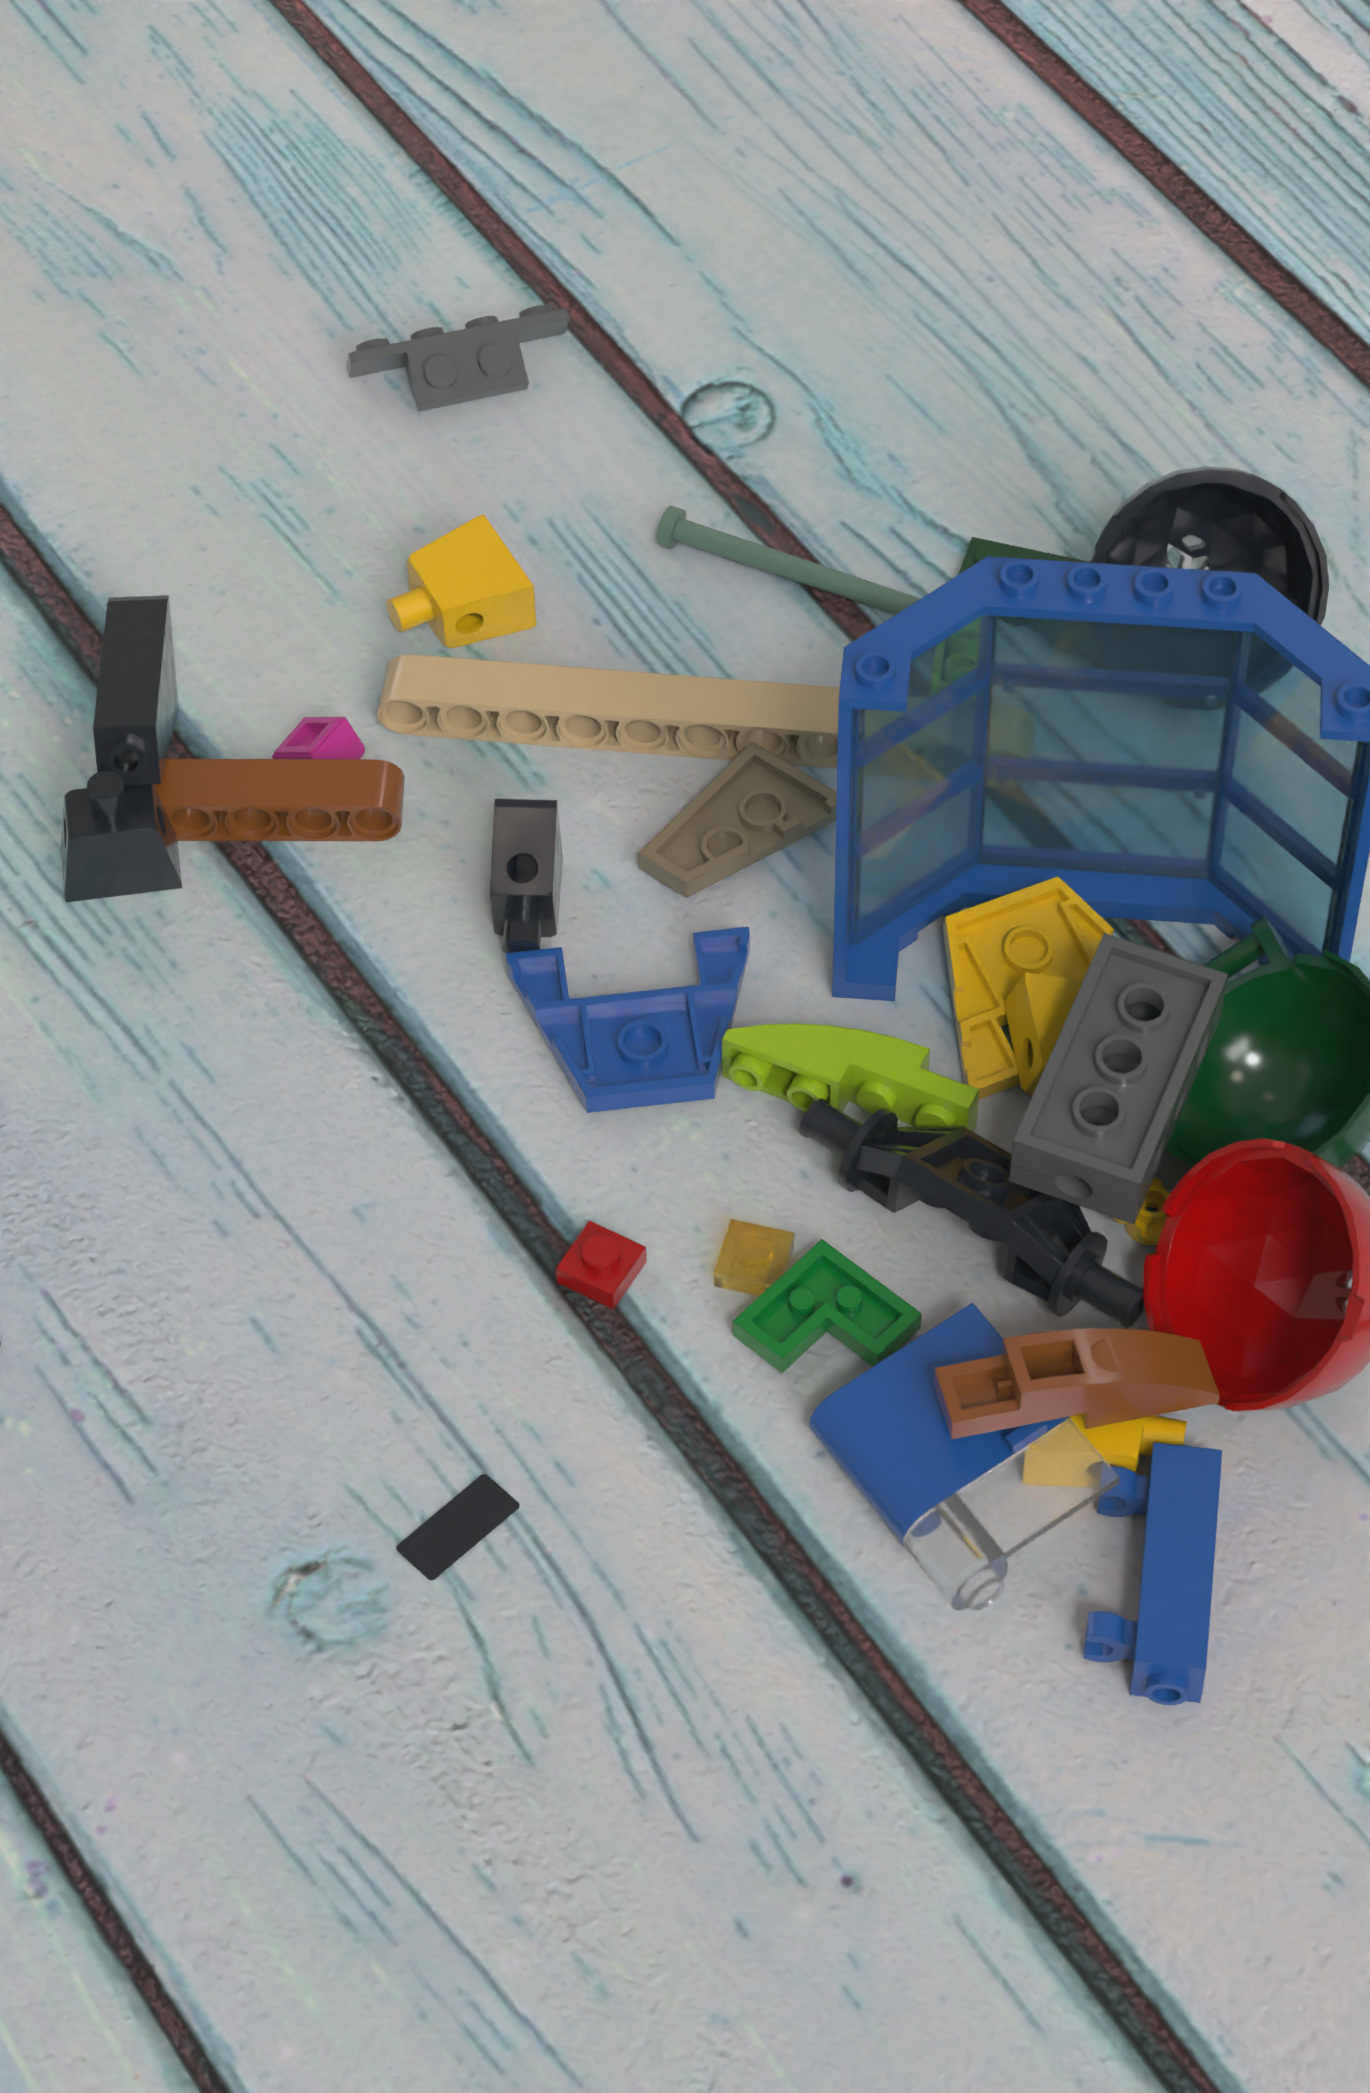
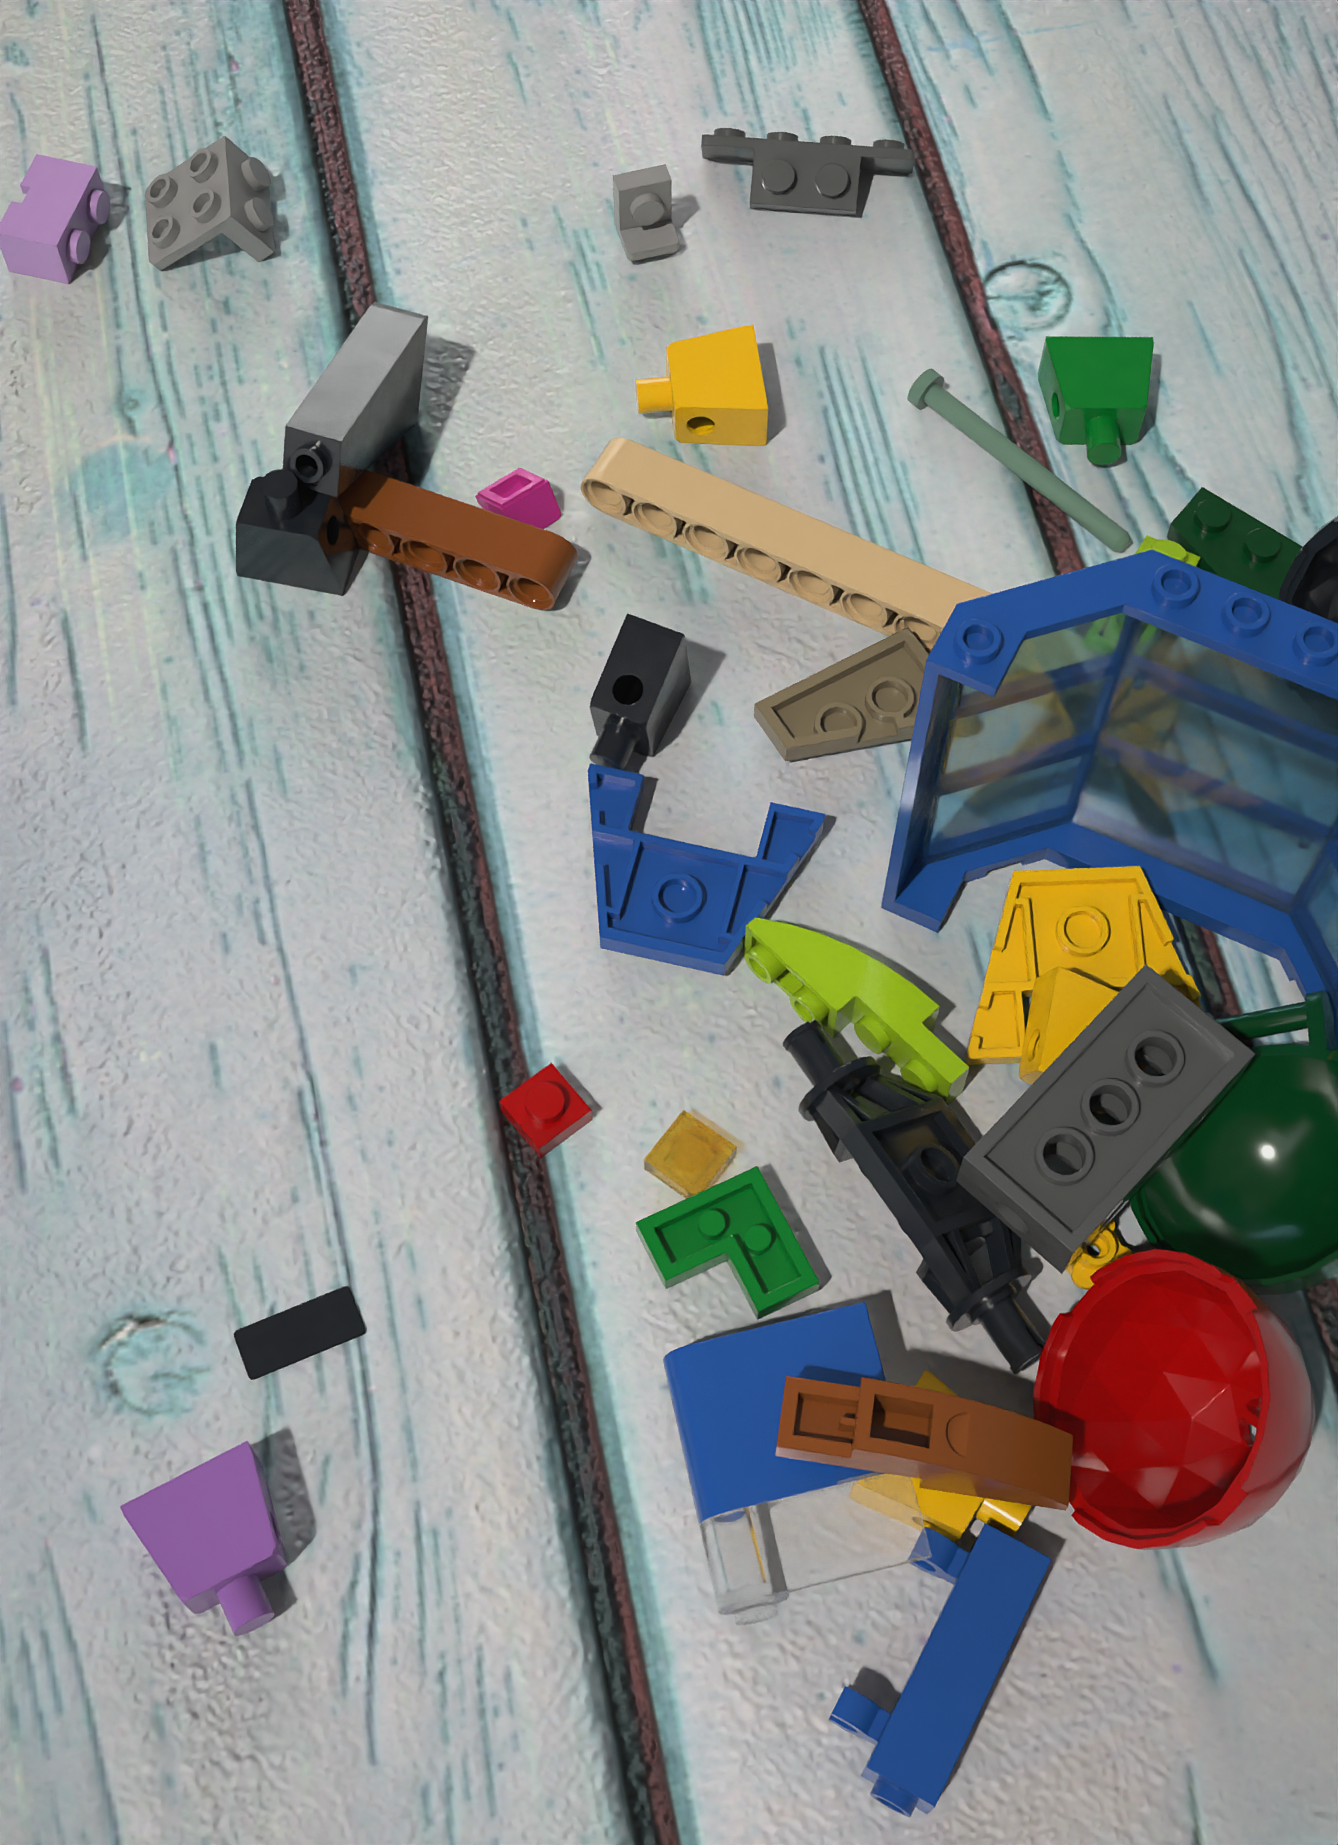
camera: 20 degrees right, 10 degrees up
(321, 443) = (645, 212): none -> light grey bracket
(466, 1704) = (215, 1536): none -> medium lavender torso
(836, 480) = (1096, 391): none -> green torso

